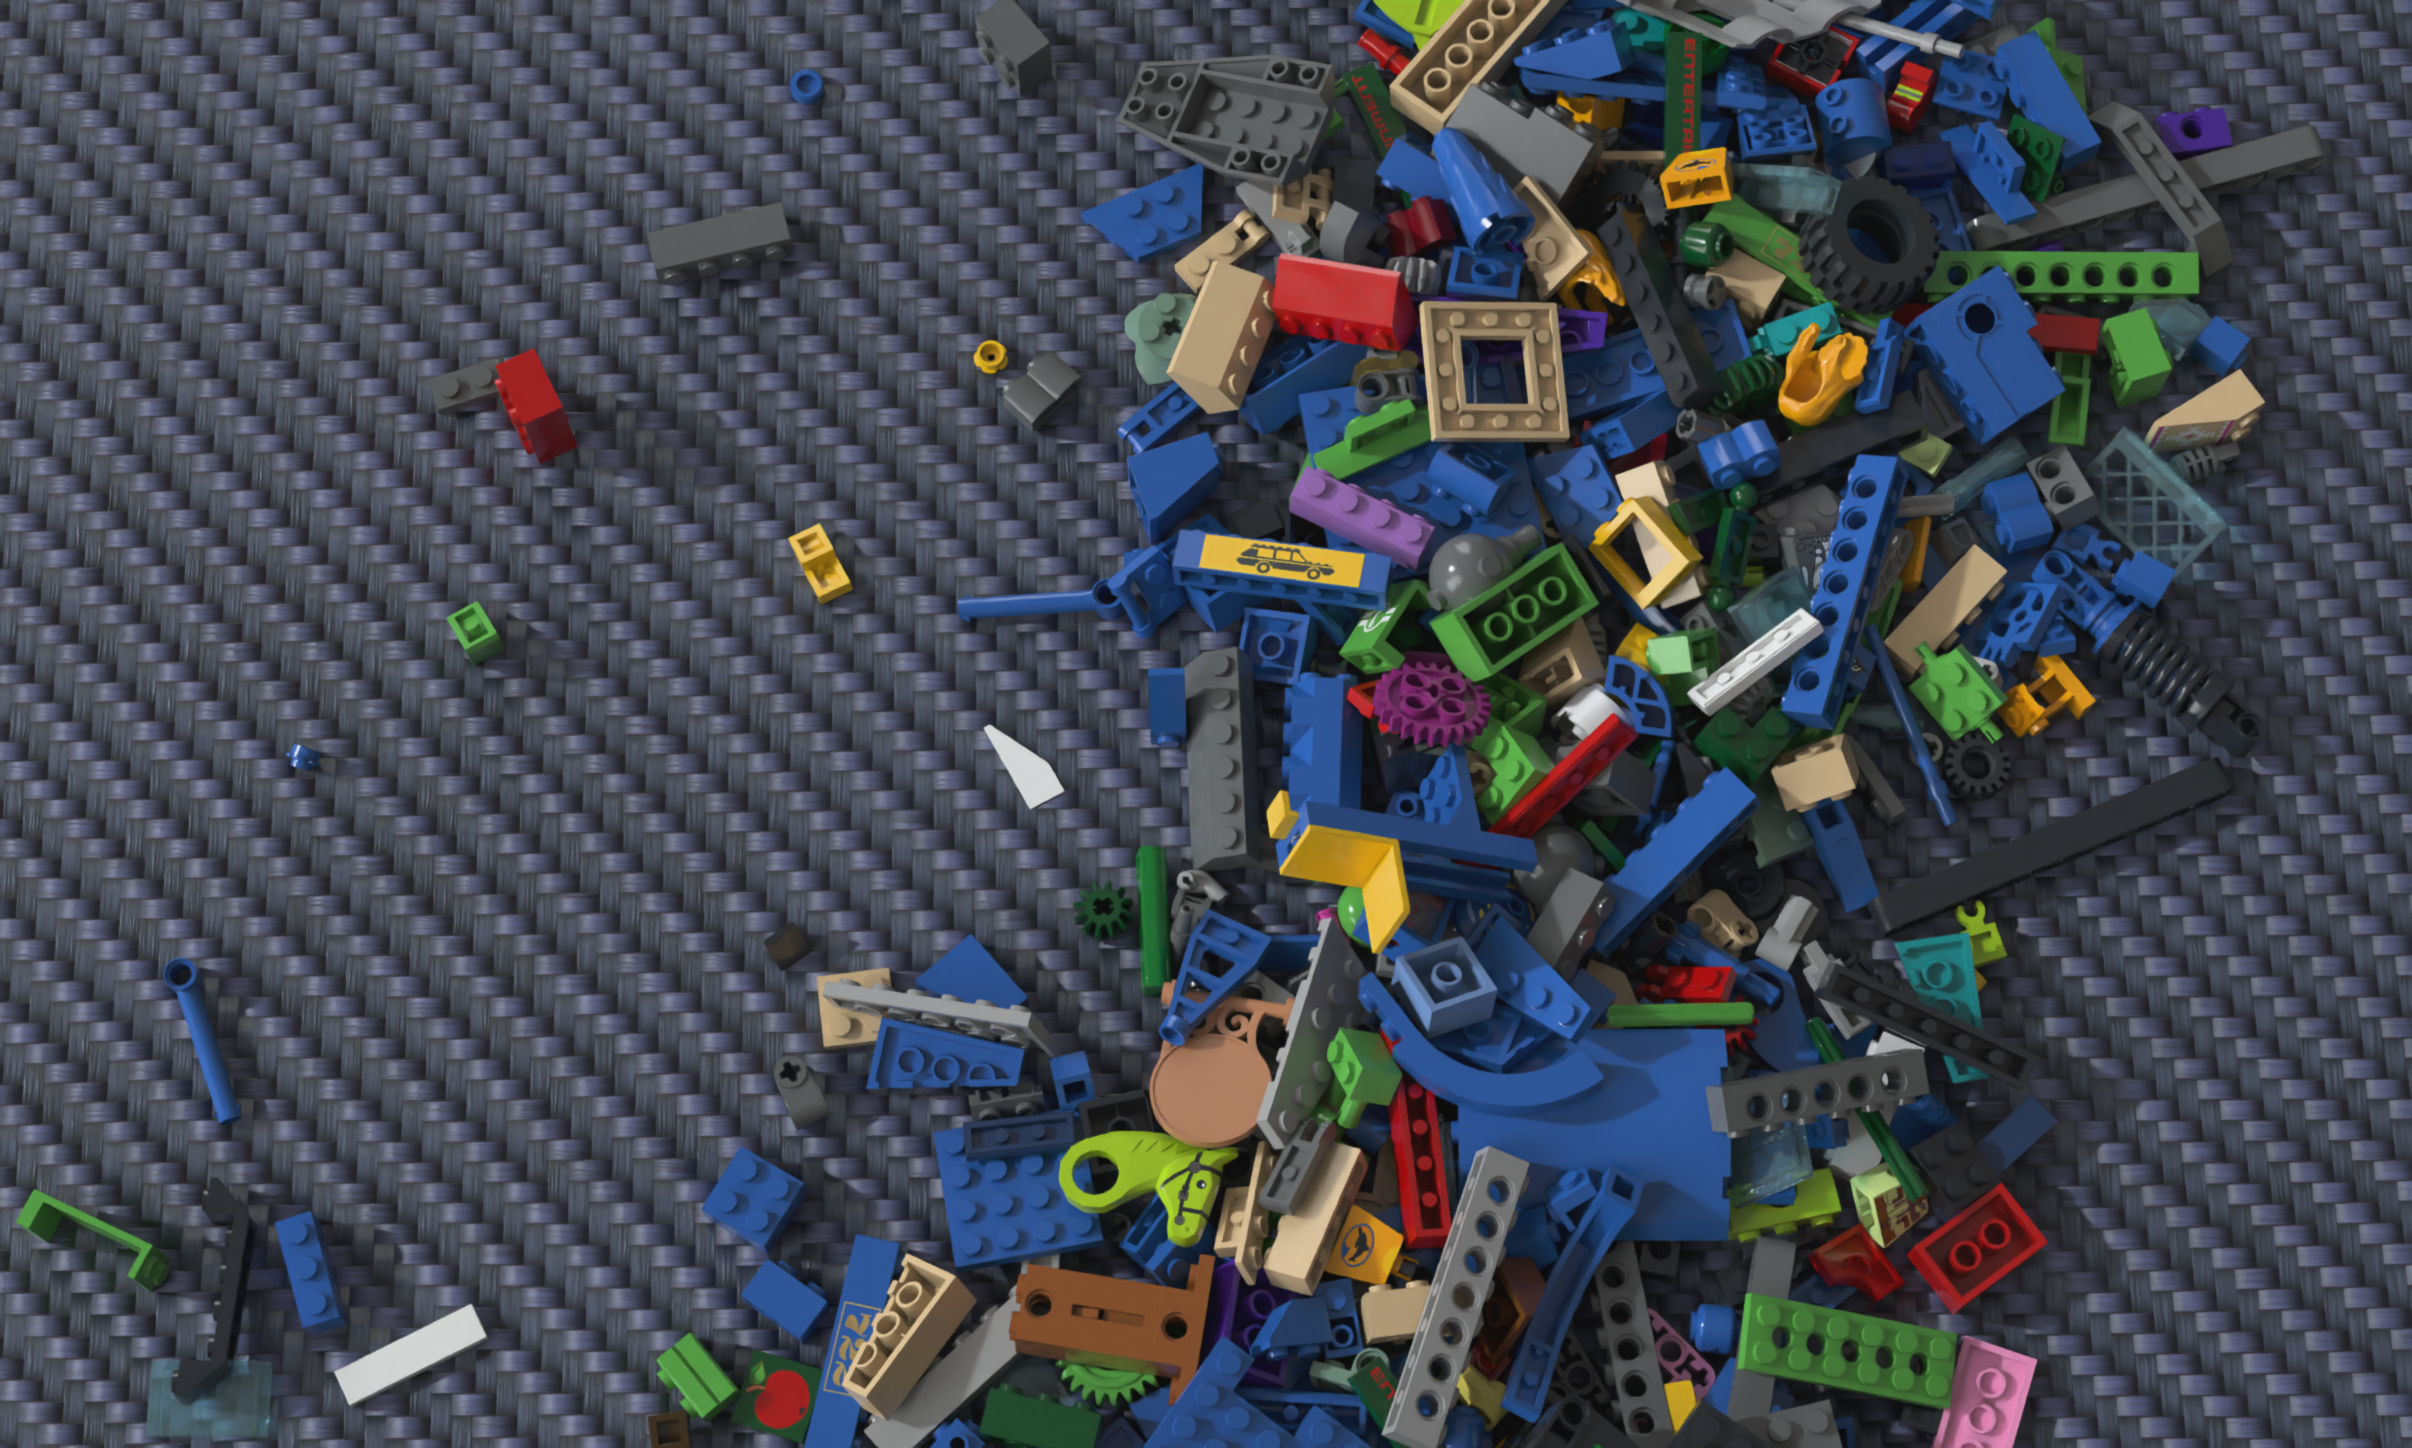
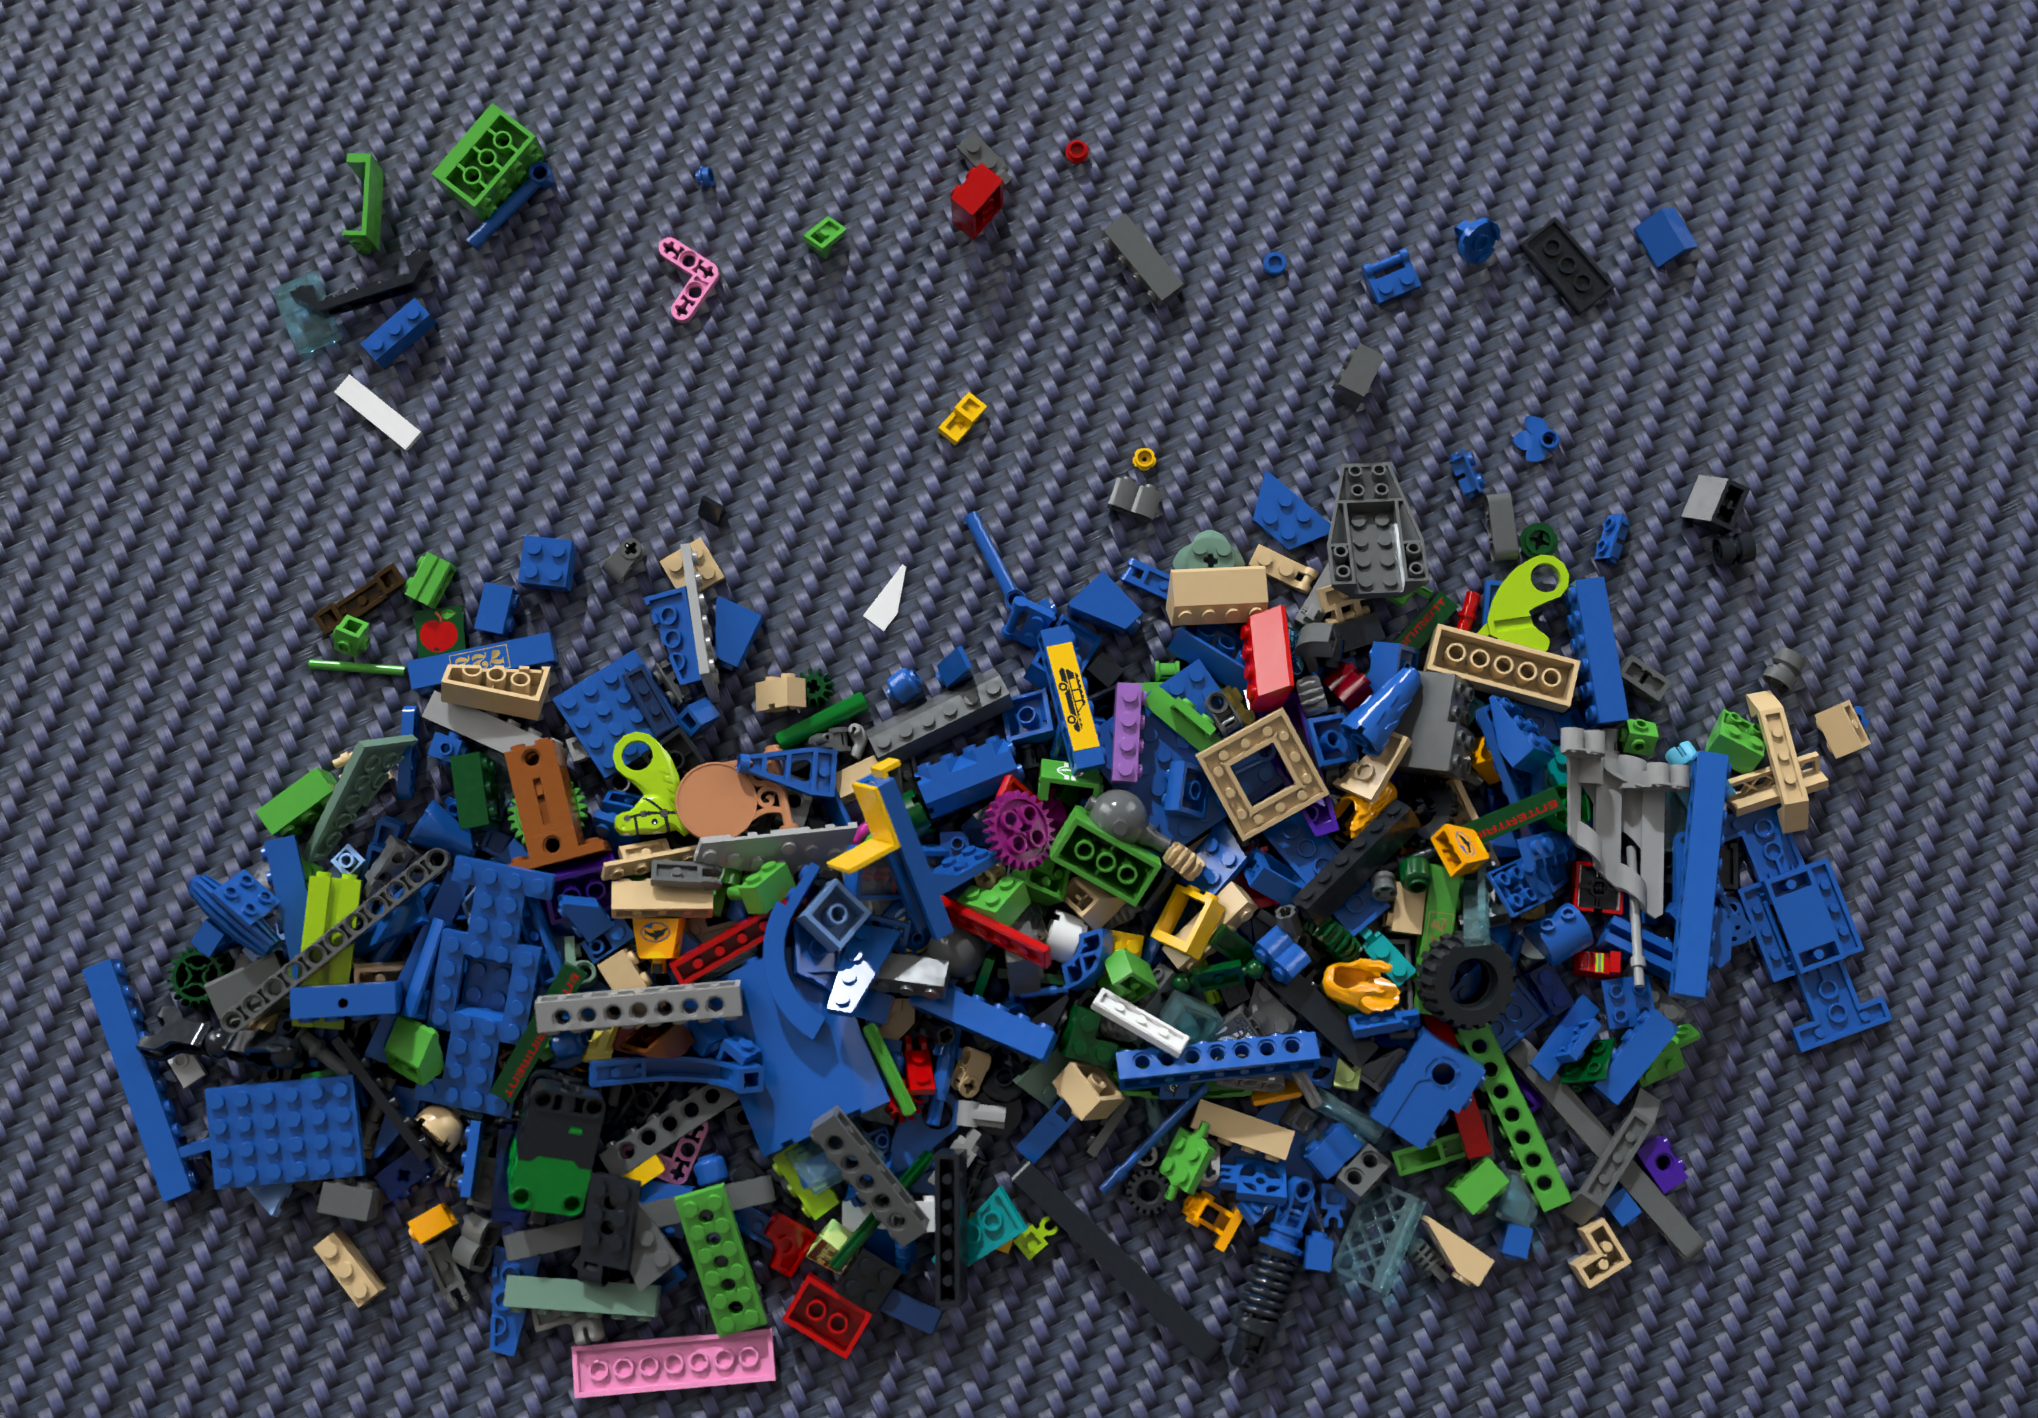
camera: 65 degrees right, 10 degrees up
(131, 1038) = (488, 163): none -> bright green brick
(446, 828) = (697, 279): none -> bright pink beam
(525, 262) = (1077, 152): none -> red plate
(1092, 959) = (779, 693): none -> tan brick
(1155, 791) = (904, 685): none -> blue head
(1258, 898) = (851, 774): none -> tan hinge
(1291, 450) = (1164, 671): none -> bright green bush
(1562, 519) = (1183, 861): none -> tan gear
(2231, 202) = (1621, 1207): none -> blue brick
(2280, 247) = (1604, 1253): none -> tan brick

